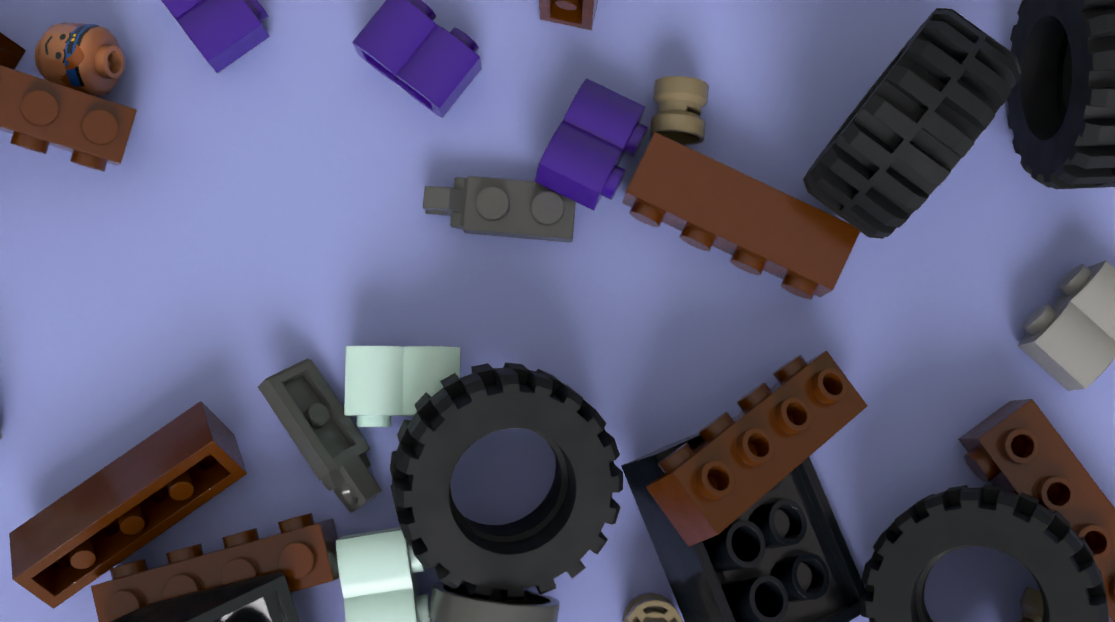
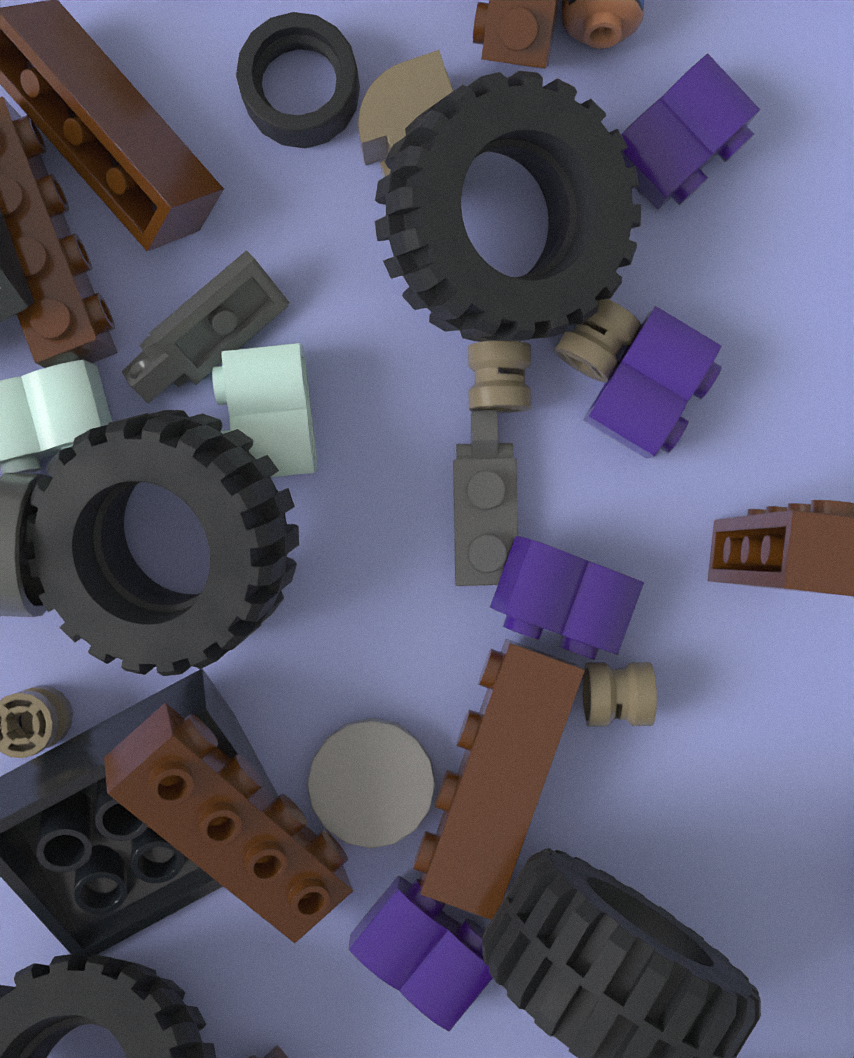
camera: 80 degrees right, 5 degrees up
(72, 319) = (287, 34): none -> black tyre
(155, 239) = (396, 101): none -> dark tan brick
(241, 91) = (583, 190): none -> black tyre
(373, 95) = (597, 341): none -> dark tan wheel
(395, 181) = (499, 376): none -> dark tan wheel
(736, 330) = (371, 783): none -> light grey tile
(884, 297) = (422, 952): none -> dark purple brick

